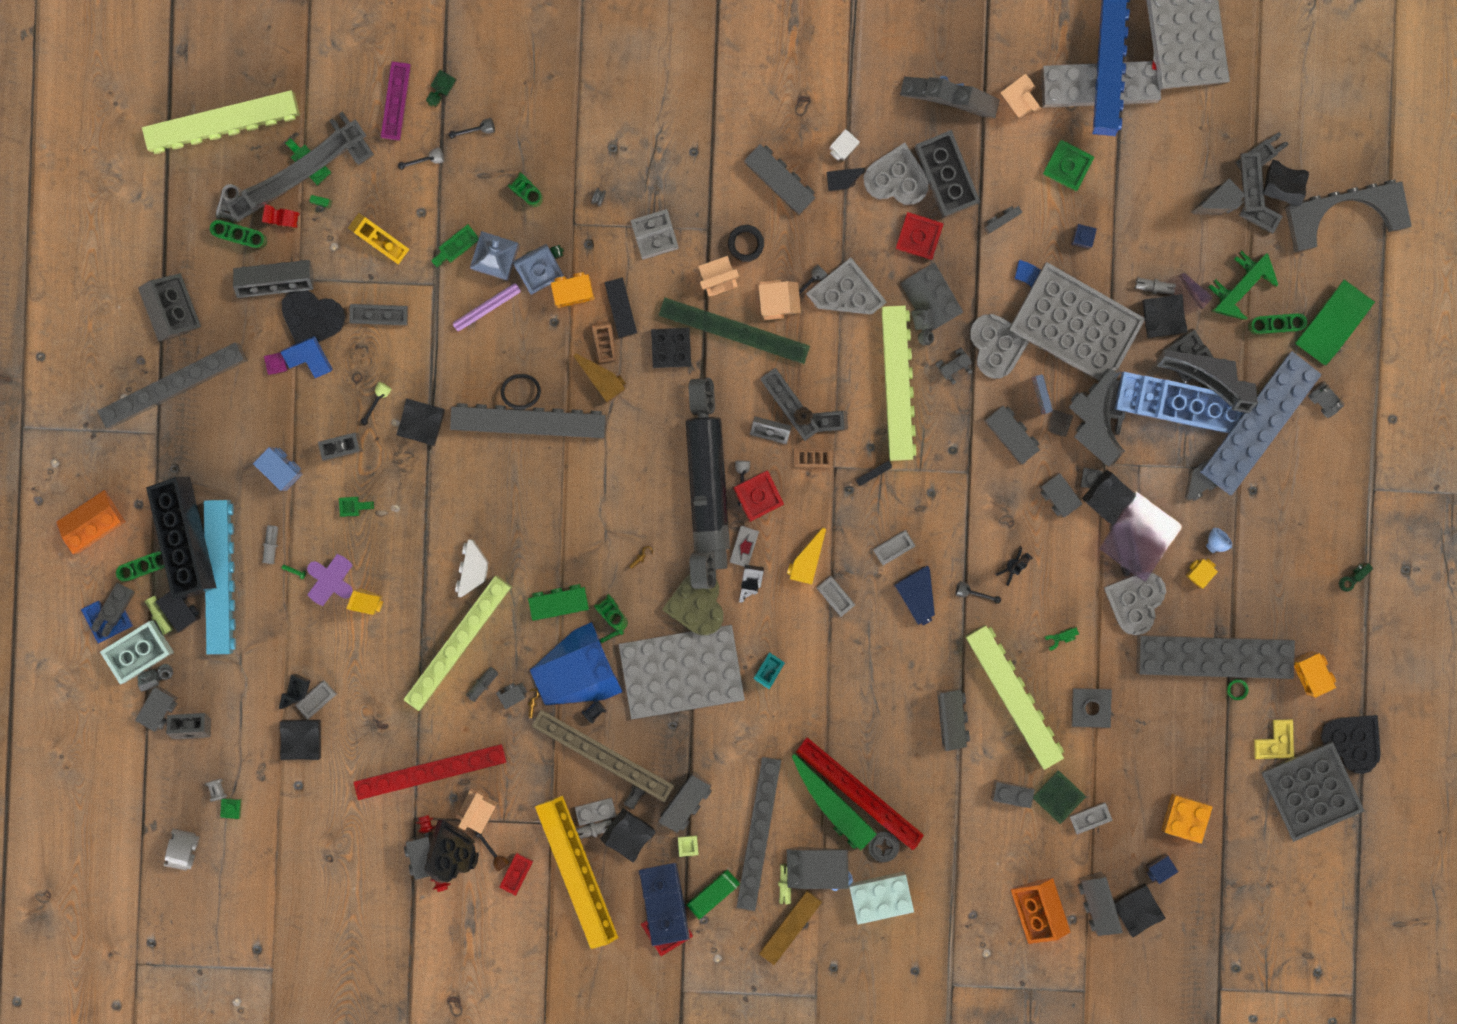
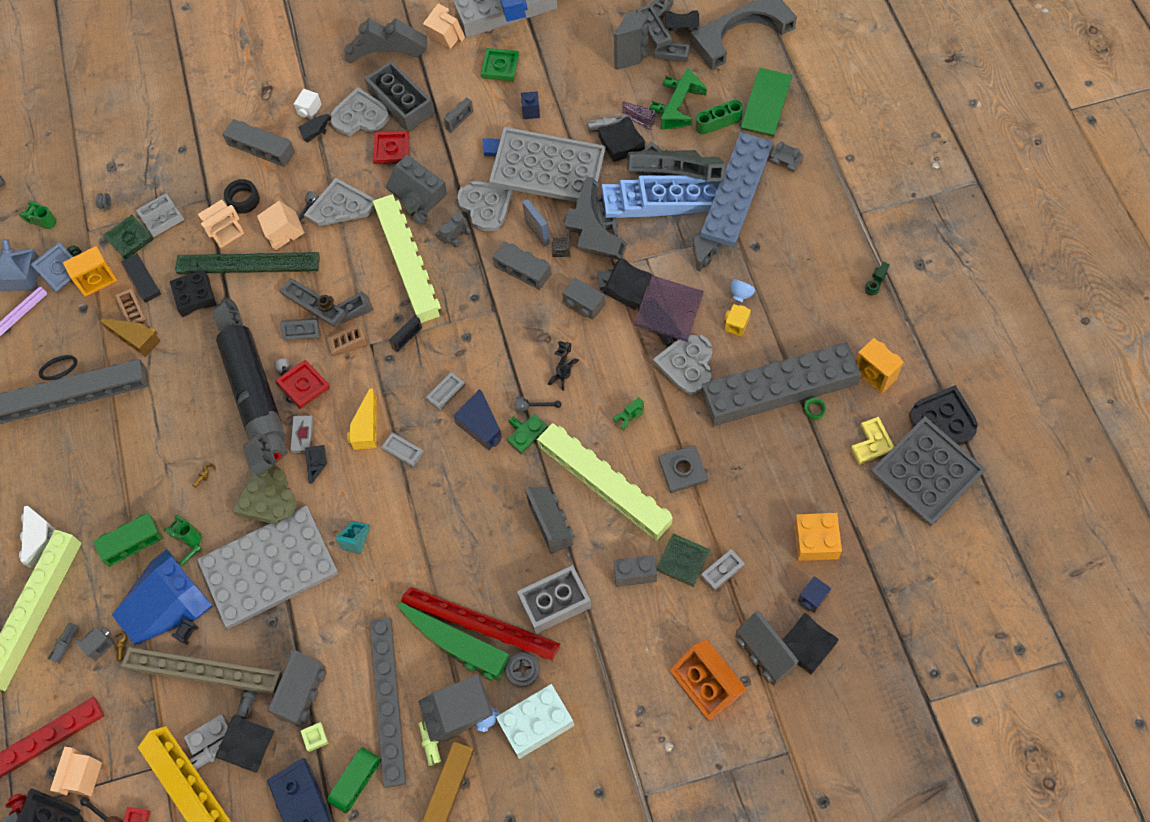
camera: 10 degrees left, 25 degrees down
(617, 253) = (128, 237): none -> clear green plate
(932, 797) = (554, 599): none -> light grey brick
(958, 619) = (526, 432): none -> green plate

